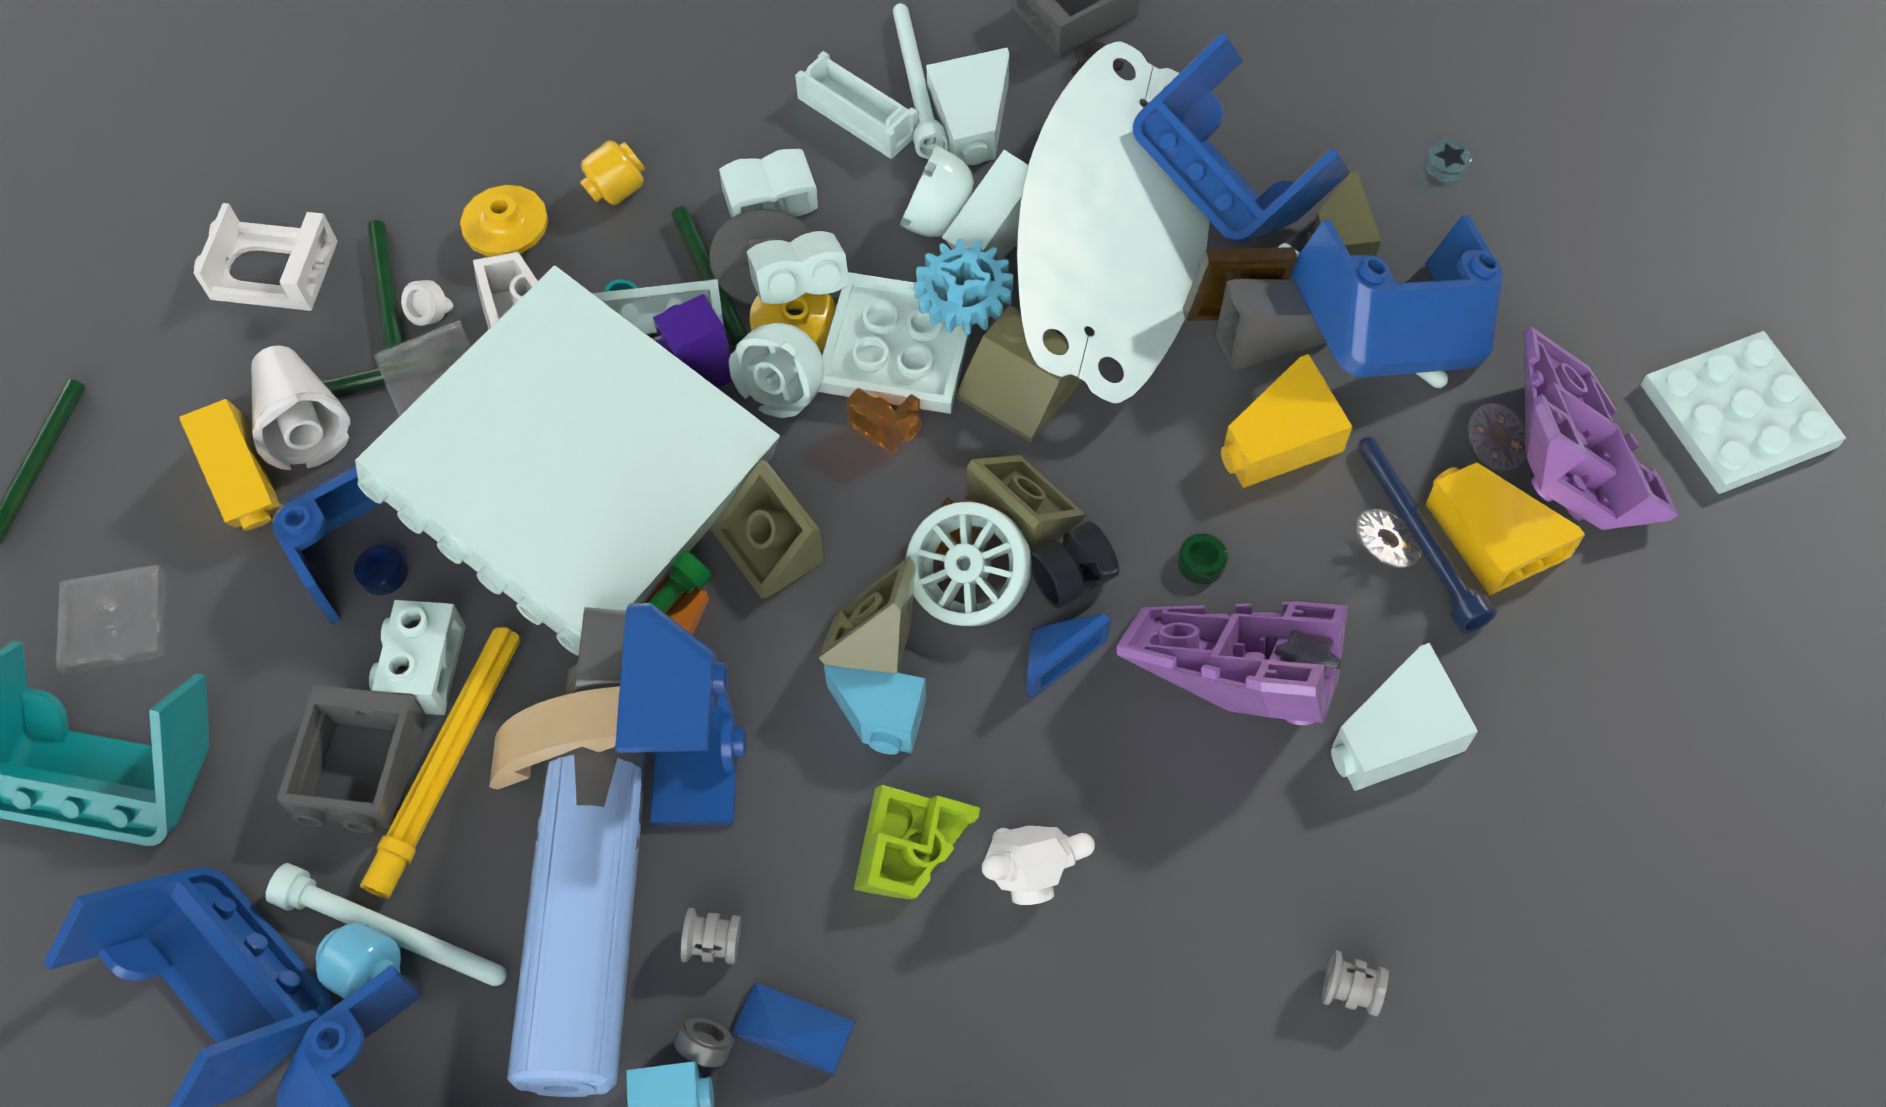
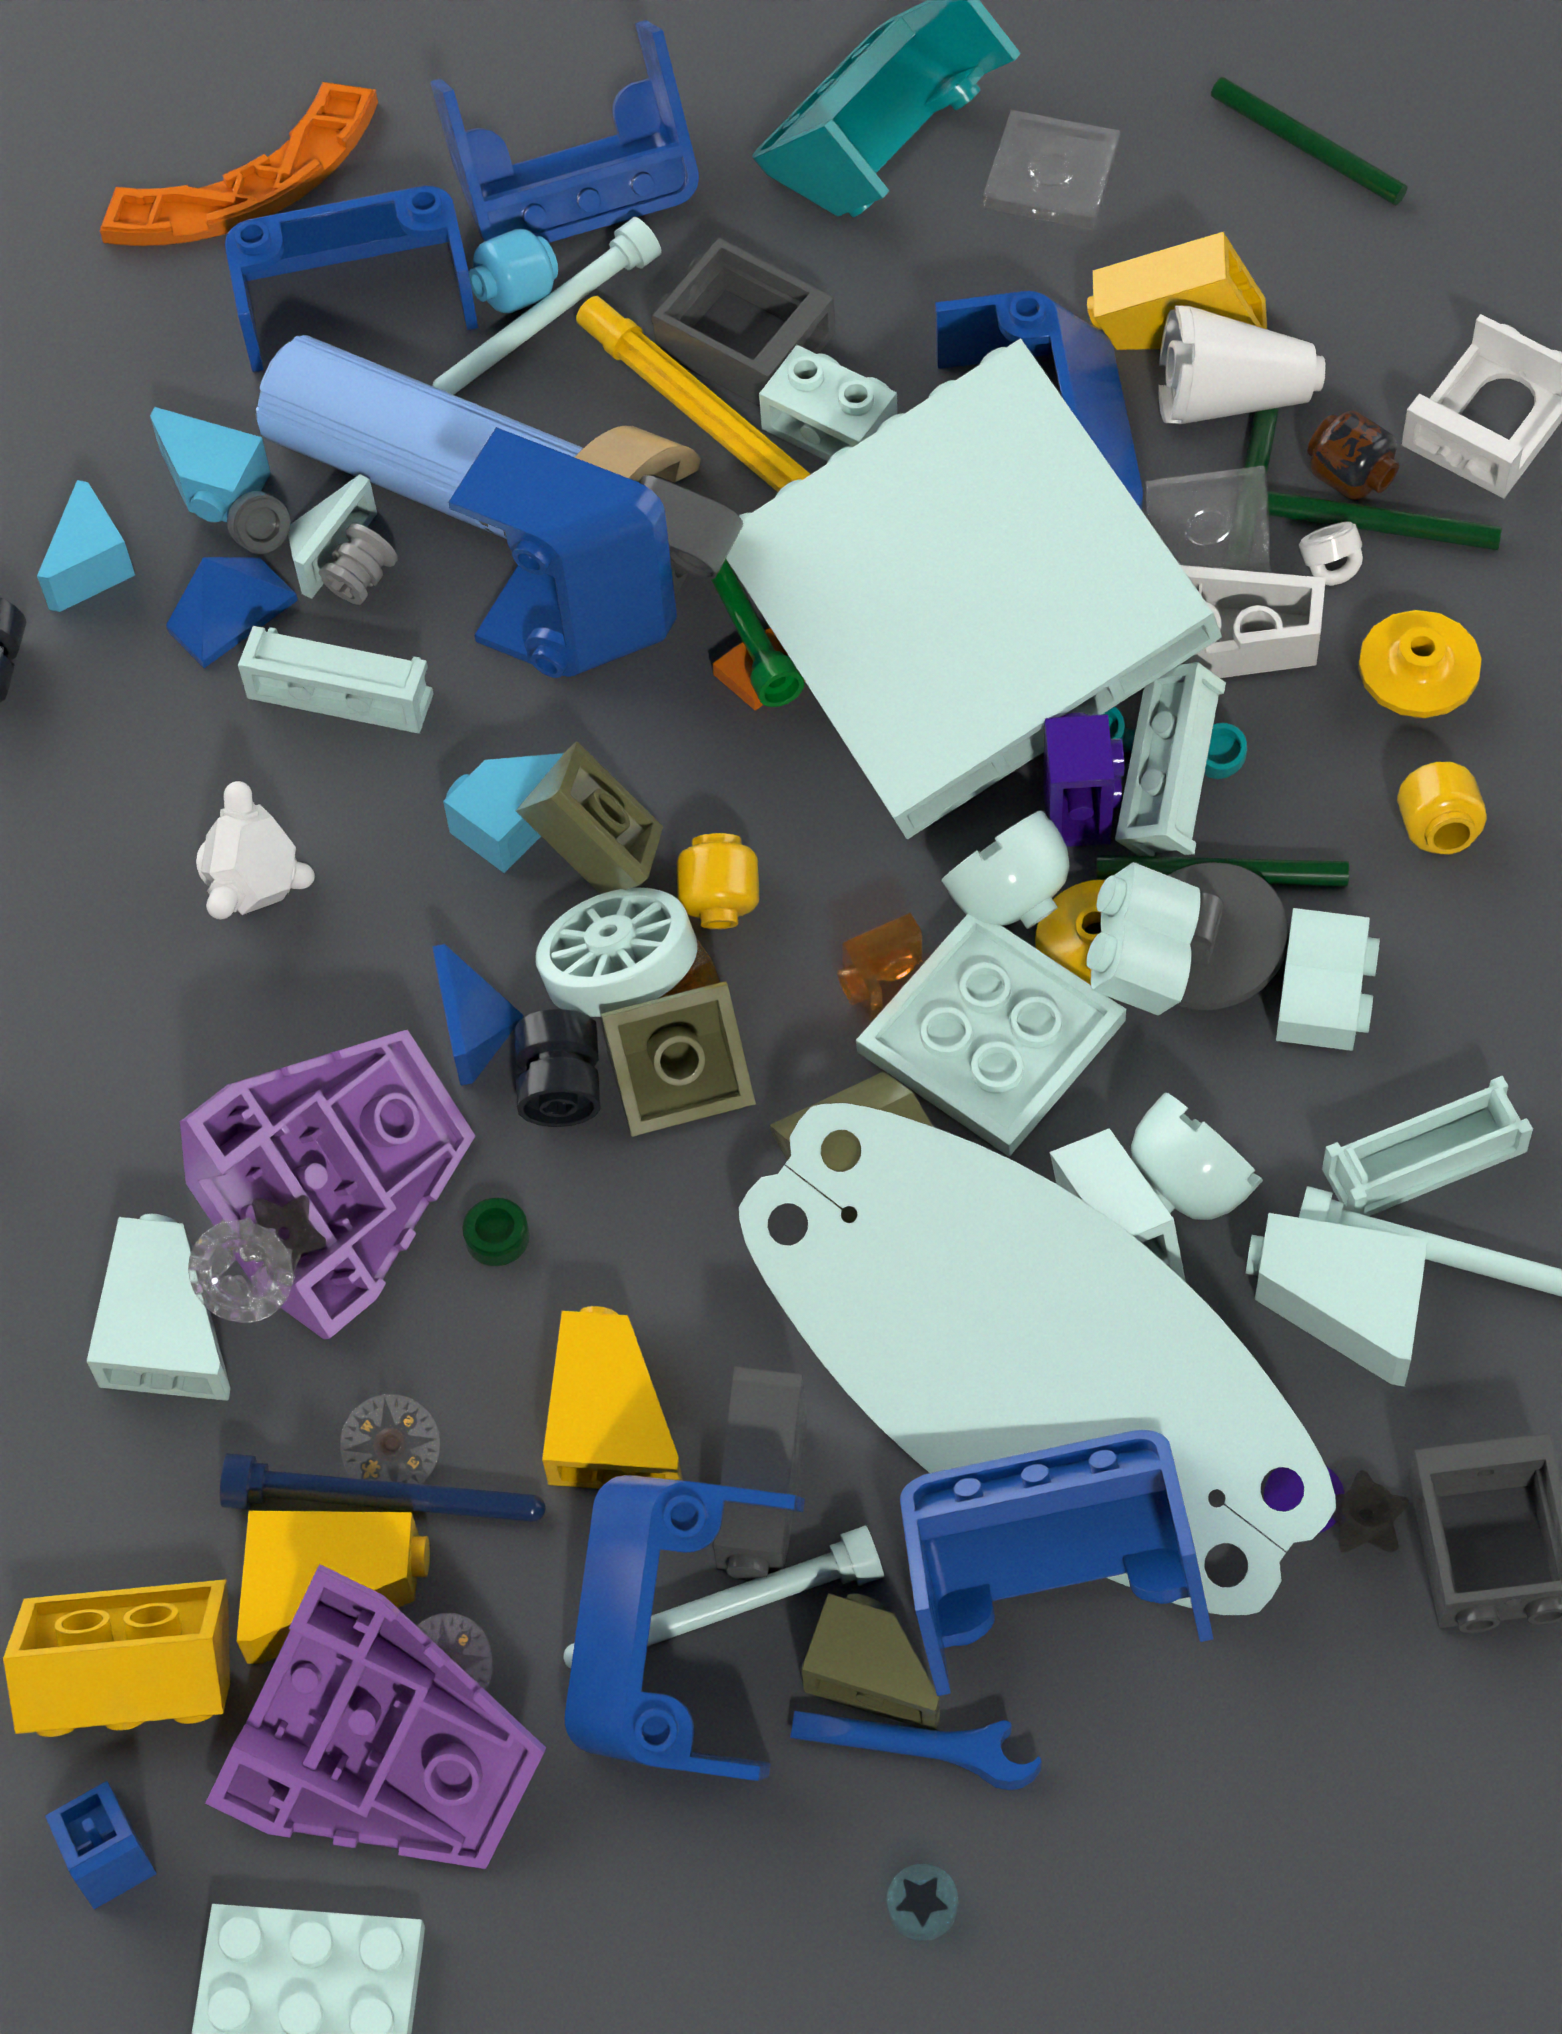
camera: 120 degrees right, 0 degrees up
(338, 318) = (1353, 455): none -> head
(691, 984) = (324, 528): none -> light aqua slope
(769, 533) = (792, 791): olive slope -> none
(827, 892) = (335, 680): none -> light aqua container
(871, 540) = (718, 880): none -> yellow head
(908, 840) = (348, 780): lime slope -> none
(964, 287) = (1006, 1102): medium azure gear -> none
(1223, 265) = (826, 1434): dark brown plate -> none
(1352, 159) = (972, 1749): none -> blue piece
(1357, 654) = (232, 1296): none -> clear gear
(1630, 616) = (119, 1658): none -> yellow slope
(1748, 558) = (99, 1845): none -> blue slope

